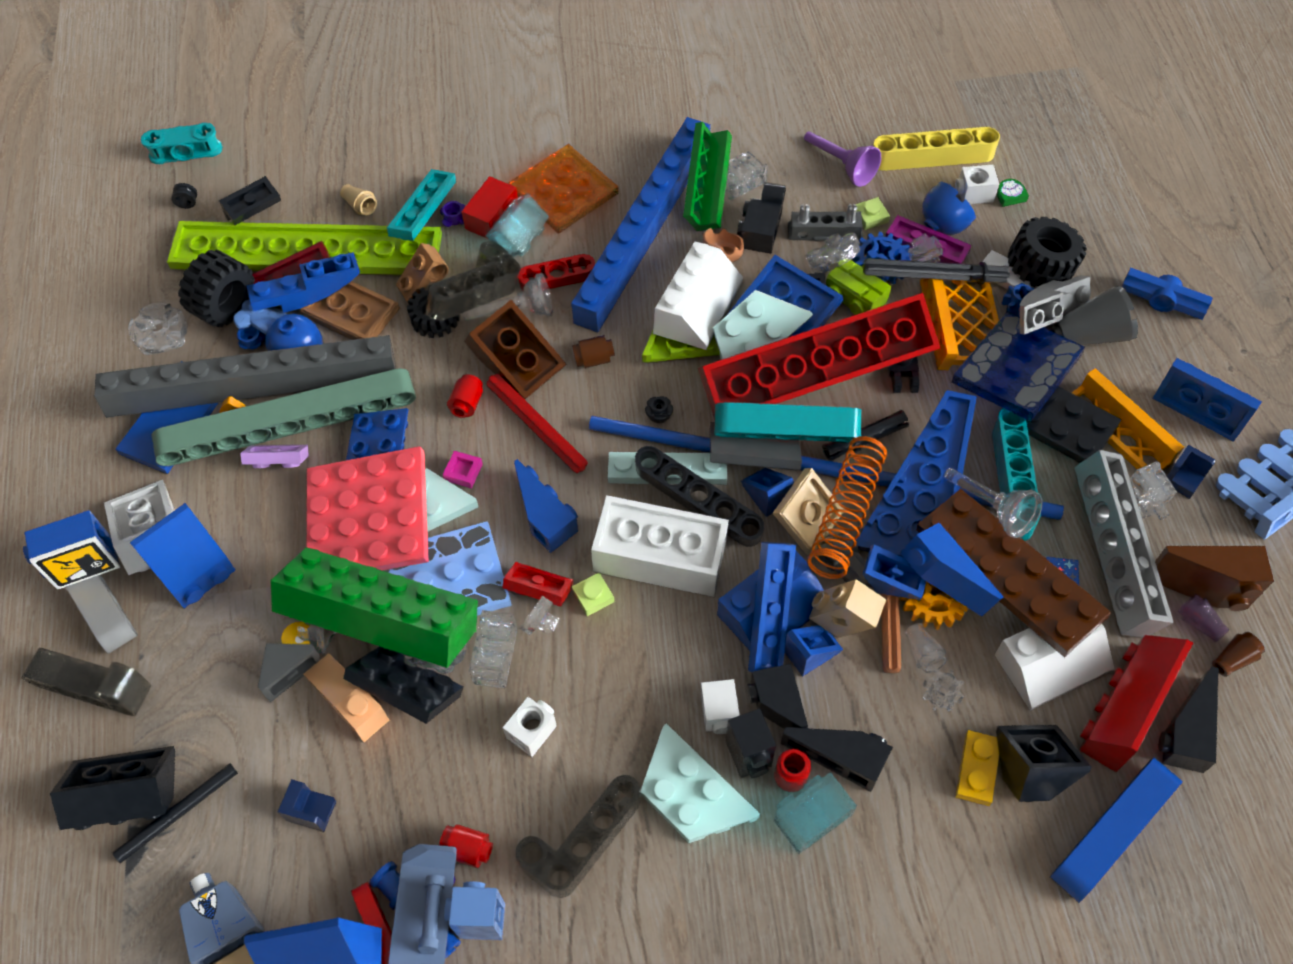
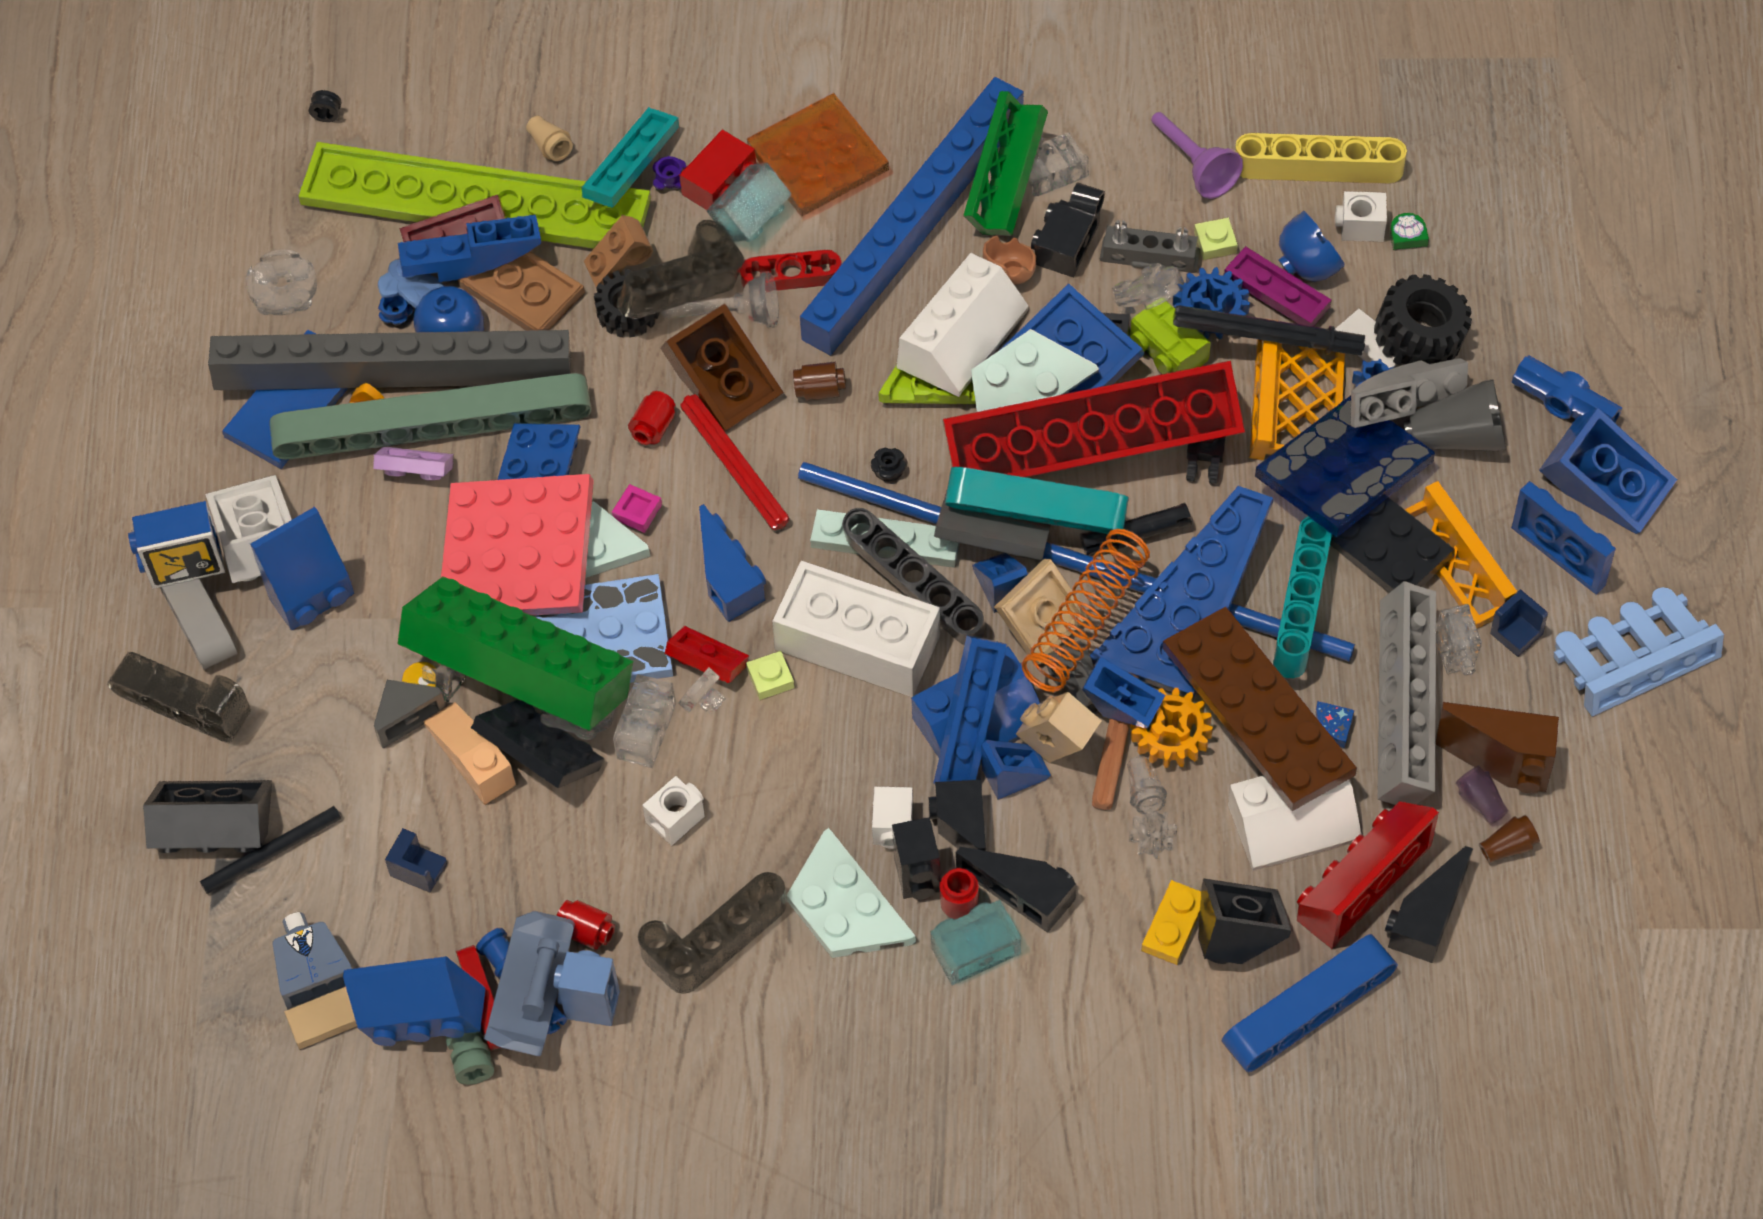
camera: 10 degrees right, 0 degrees up
(181, 143) = (326, 30): teal piece -> none
(215, 287) = (360, 242): black tyre -> none
(249, 200) = (410, 126): black panel -> none
(925, 249) = (1265, 300): clear gear -> none
(947, 567) = (1183, 694): blue slope -> none
(1015, 510) = (1274, 638): clear piece -> none
(1216, 344) = (1608, 471): none -> blue slope

